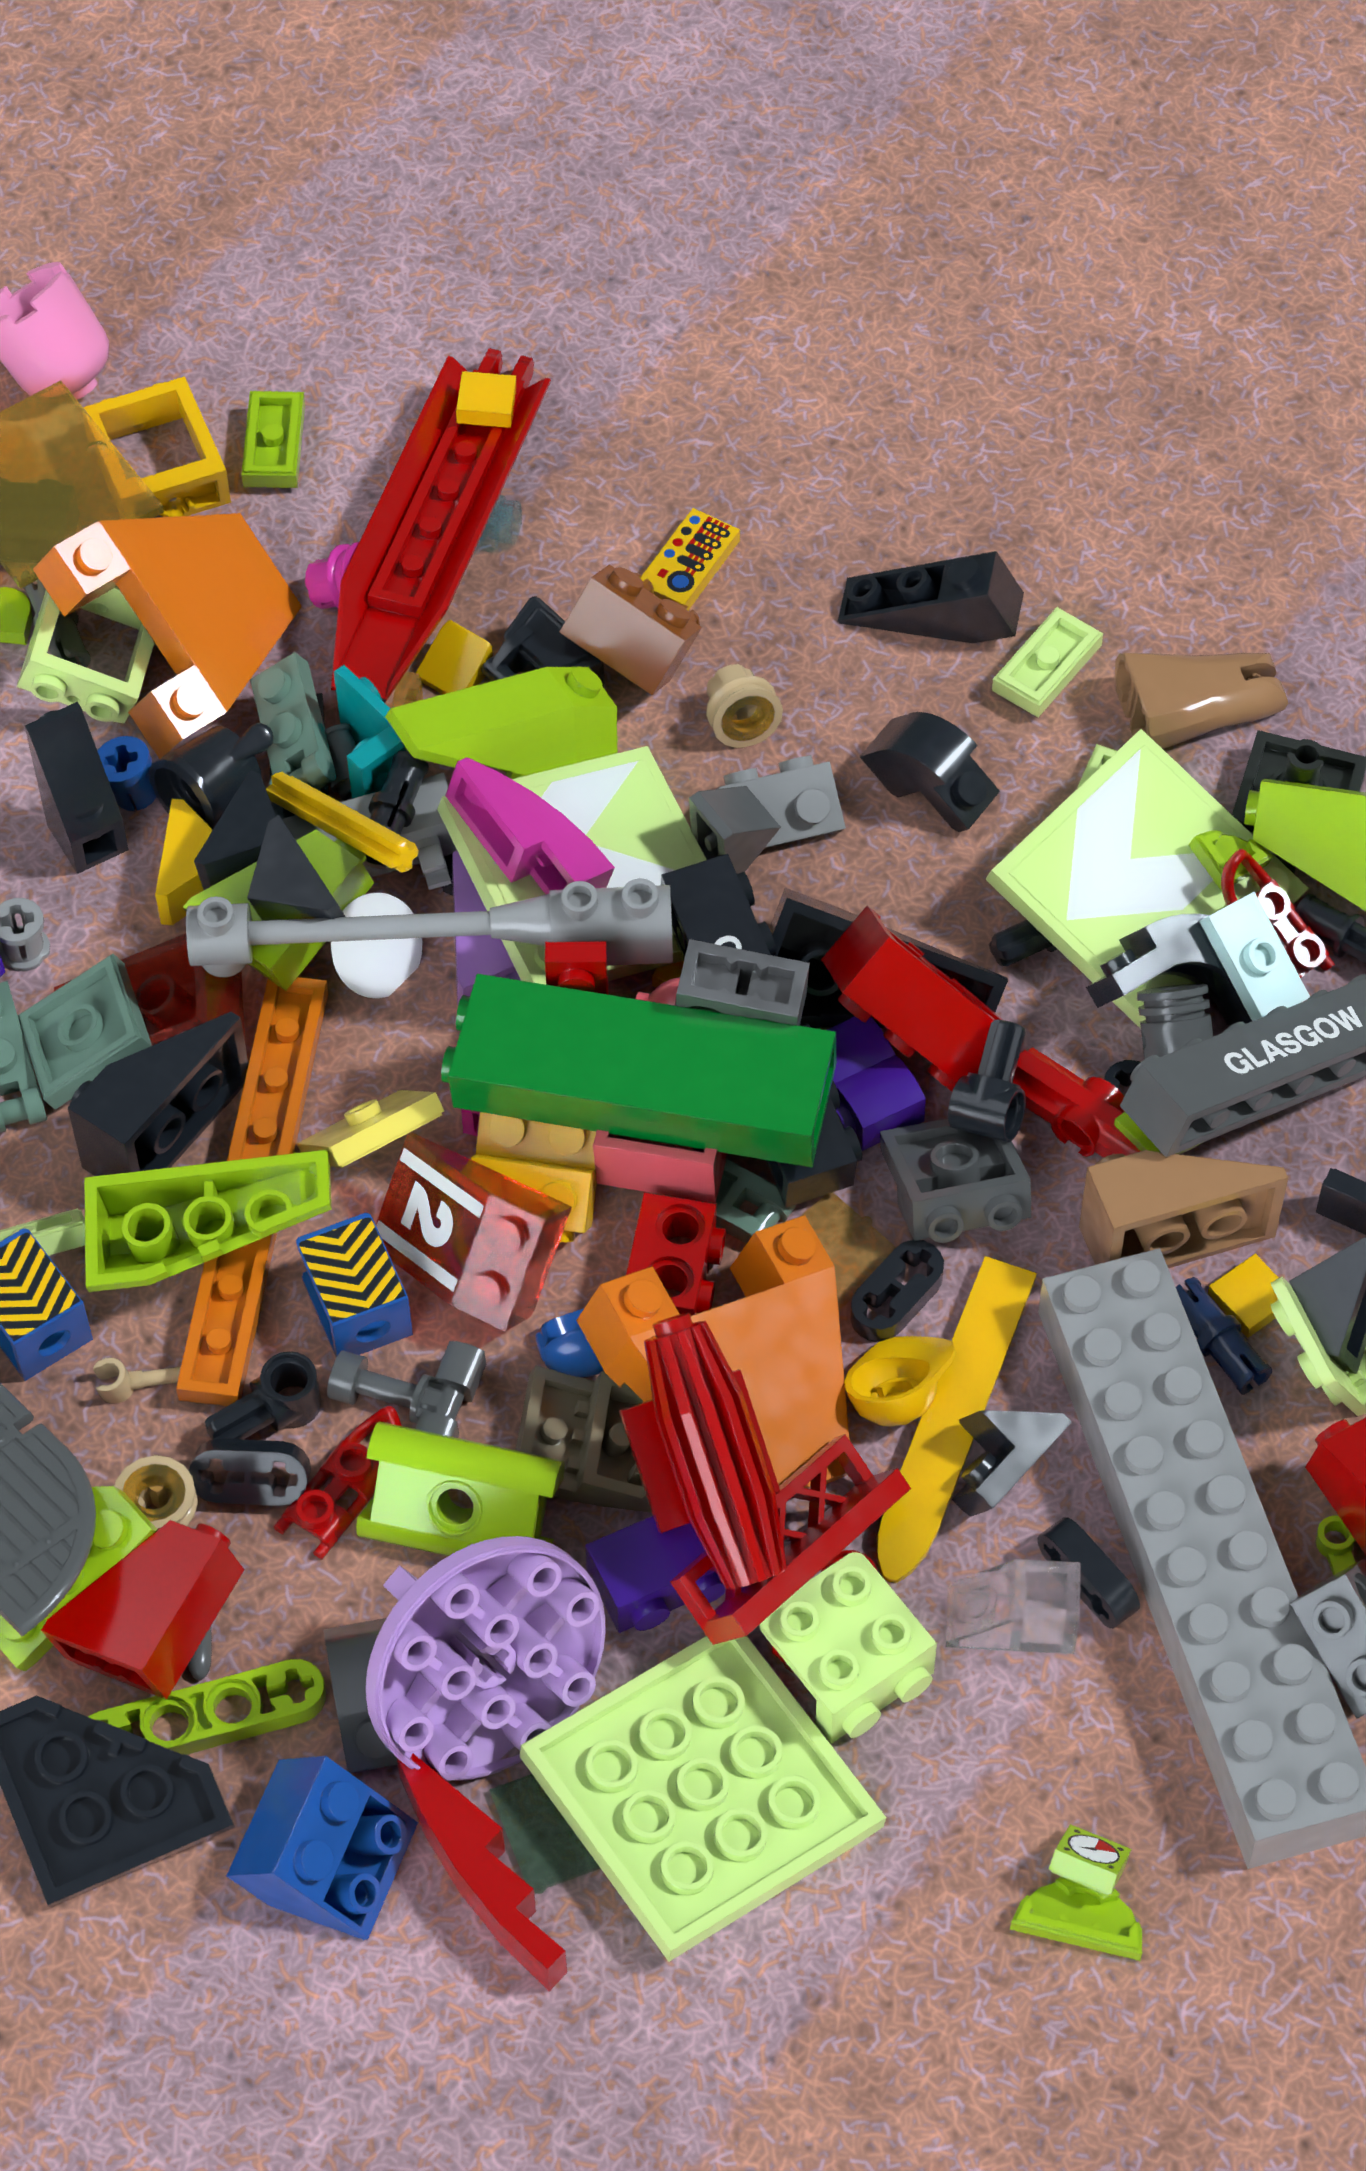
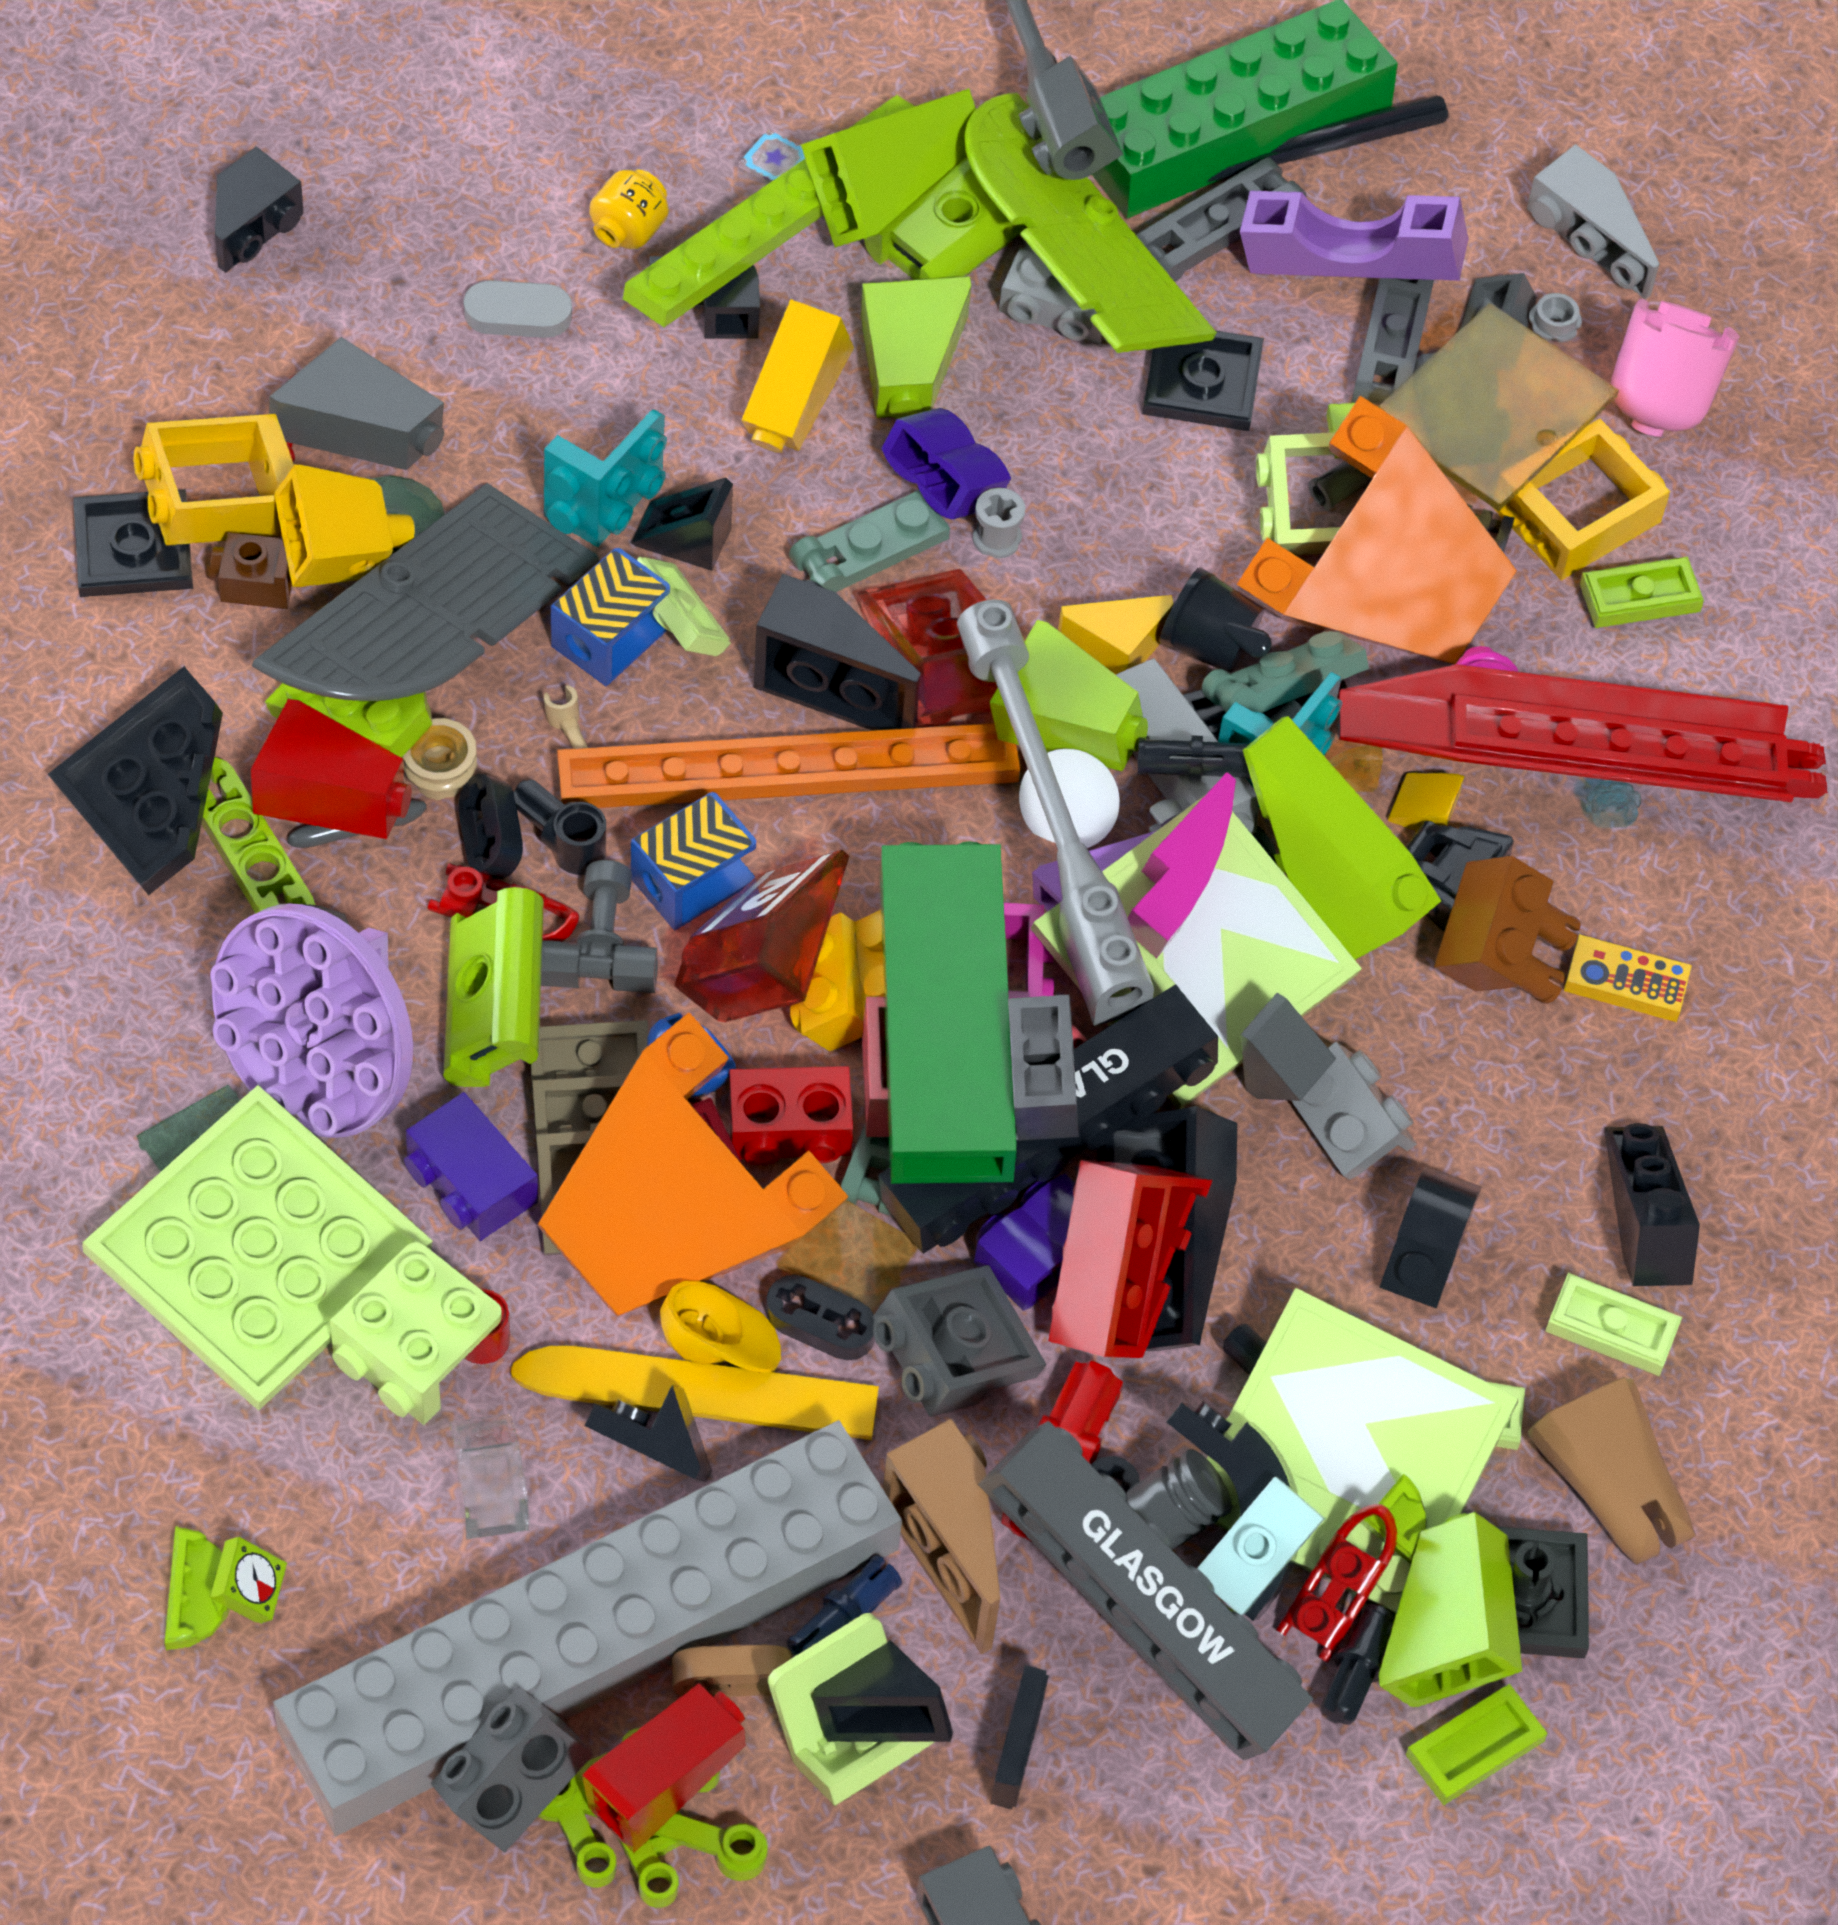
camera: 70 degrees right, 0 degrees up
(75, 788) = (1146, 512): black slope -> none
(83, 1029) = (906, 591): sand green tile -> none
(127, 770) = (1199, 547): blue bush -> none
(179, 1217) = (715, 703): lime wedge -> none
(238, 833) = (1135, 648): black slope -> none
(286, 882) = (1069, 680): black slope -> none
(323, 1846) = (137, 963): blue slope -> none
(342, 822) = (1158, 715): yellow axle -> none
(374, 1125) = (846, 823): light yellow plate -> none
(470, 1853) = (154, 1071): red slope -> none
(486, 399) = (1741, 747): yellow tile -> none
(577, 965) = (1030, 941): red plate -> none
(706, 1453) = (543, 1145): red plate -> none
(742, 707) = (1453, 1050): tan piece -> none
(808, 1551) = (495, 1273): red fence -> none
(990, 1100) = (1034, 1338): black axle -> none
(1101, 1582) = (548, 1529): black beam -> none
(1247, 1294) = (910, 1629): yellow tile -> none
(1269, 1438) = (727, 1669): none -> medium nougat beam

